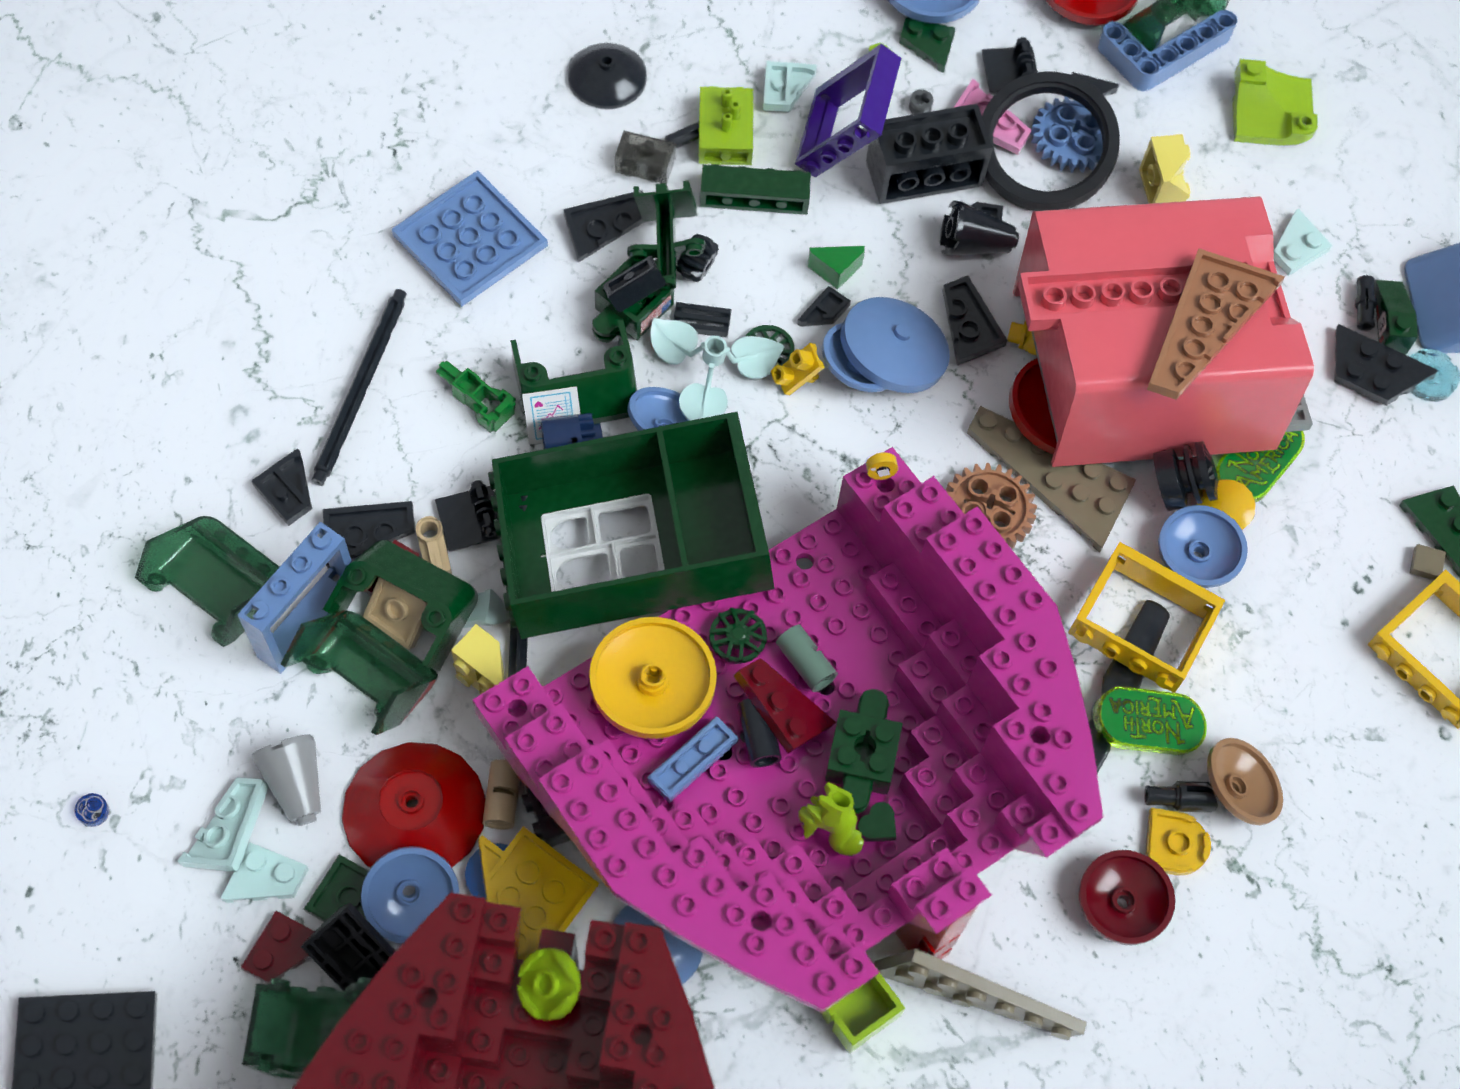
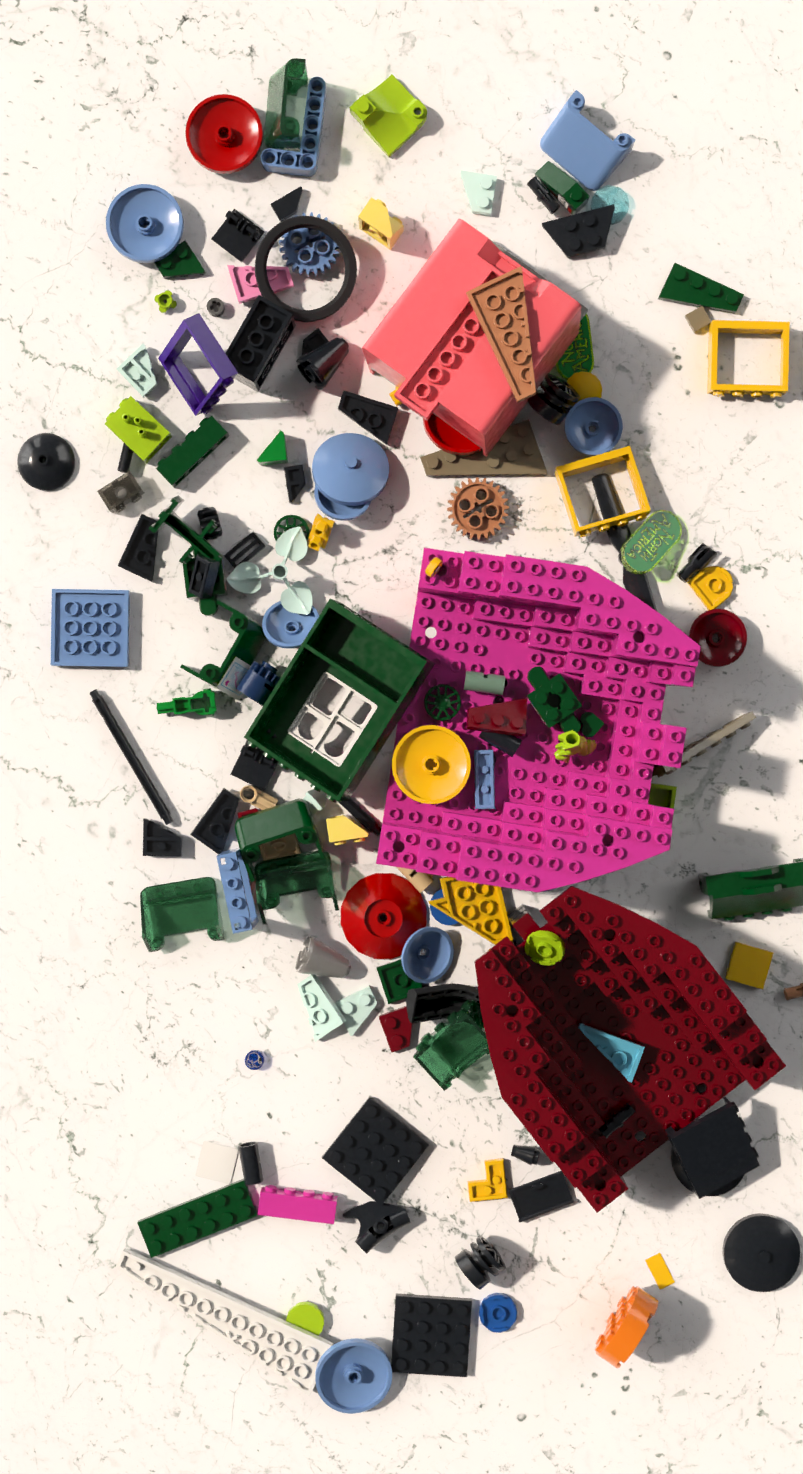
camera: 40 degrees left, 25 degrees up
(1244, 781) = (718, 528): medium nougat dish -> none

